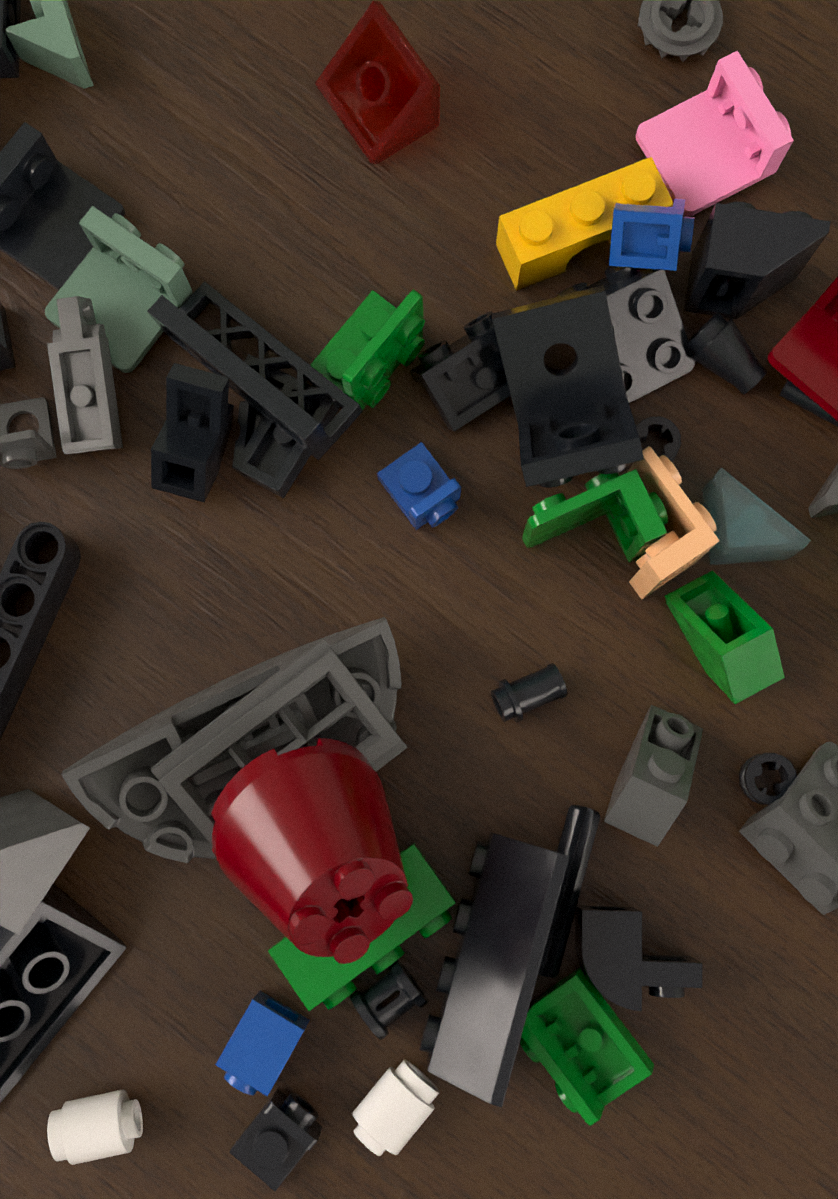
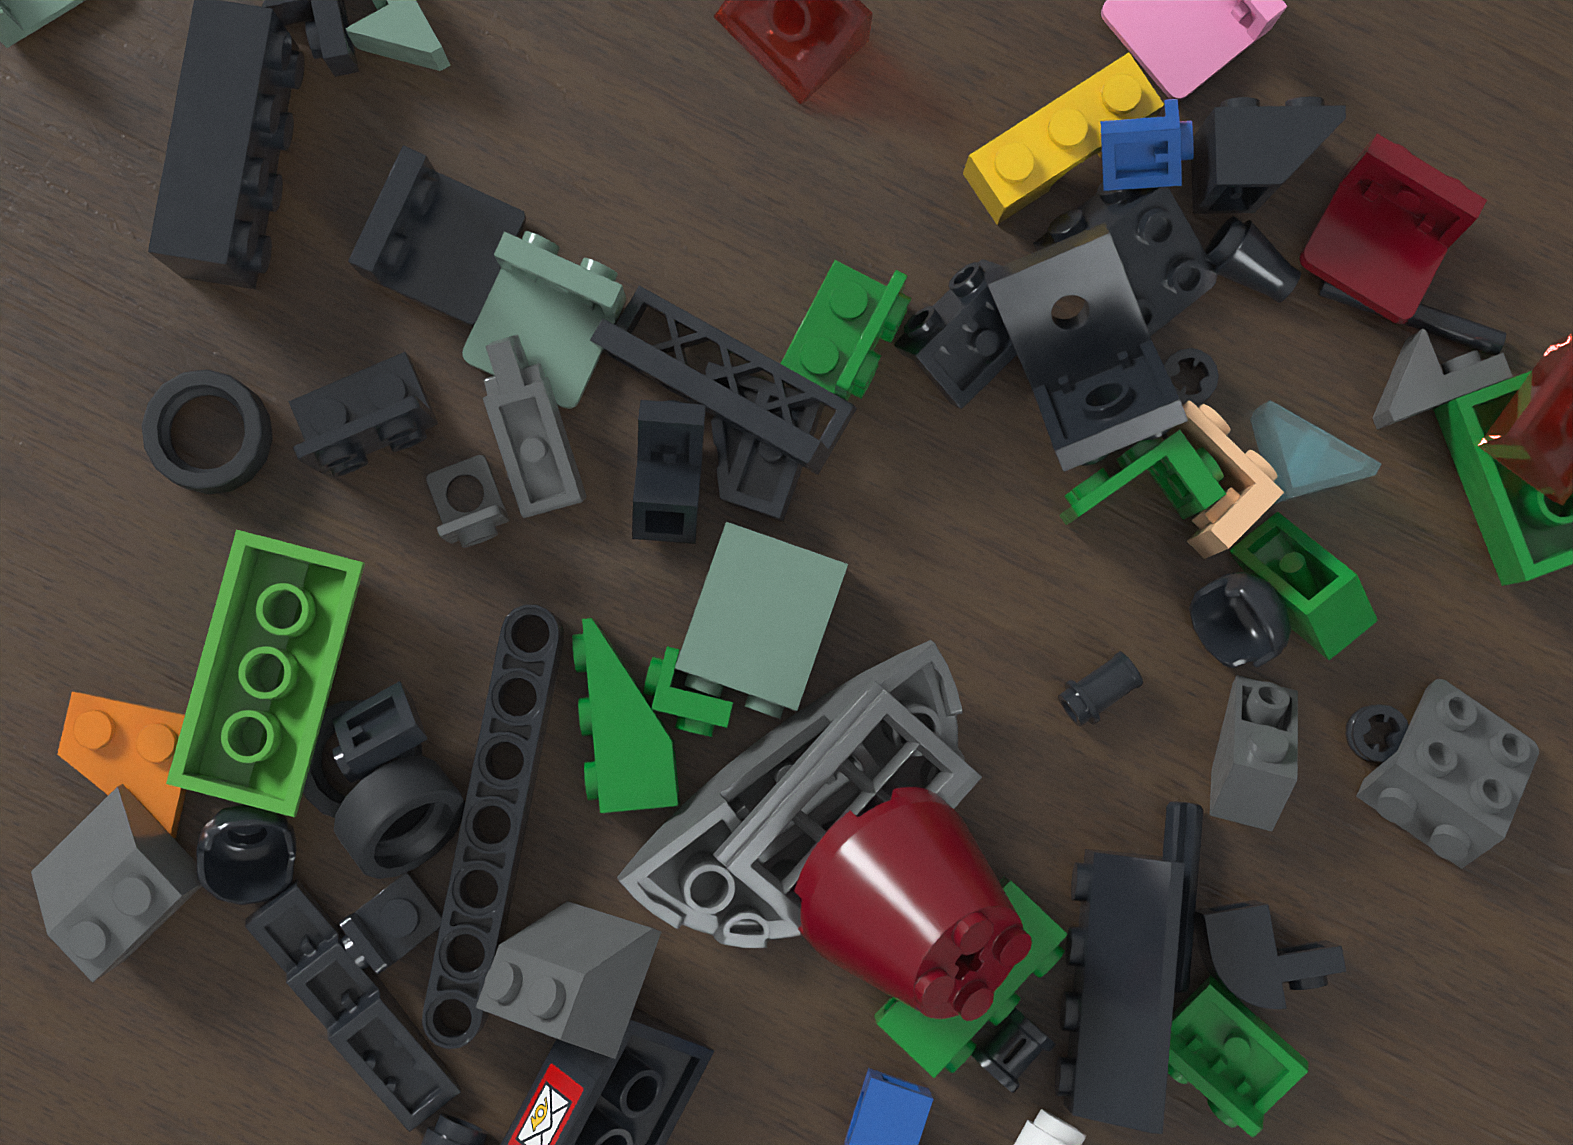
camera: 20 degrees left, 5 degrees up
(109, 659) = (631, 744): none -> green slope
(170, 642) = (694, 711): none -> green bracket
(242, 574) = (760, 620): none -> sand green panel
(421, 487) = (935, 479): blue bracket -> none
(663, 654) = (1240, 619): none -> black hair

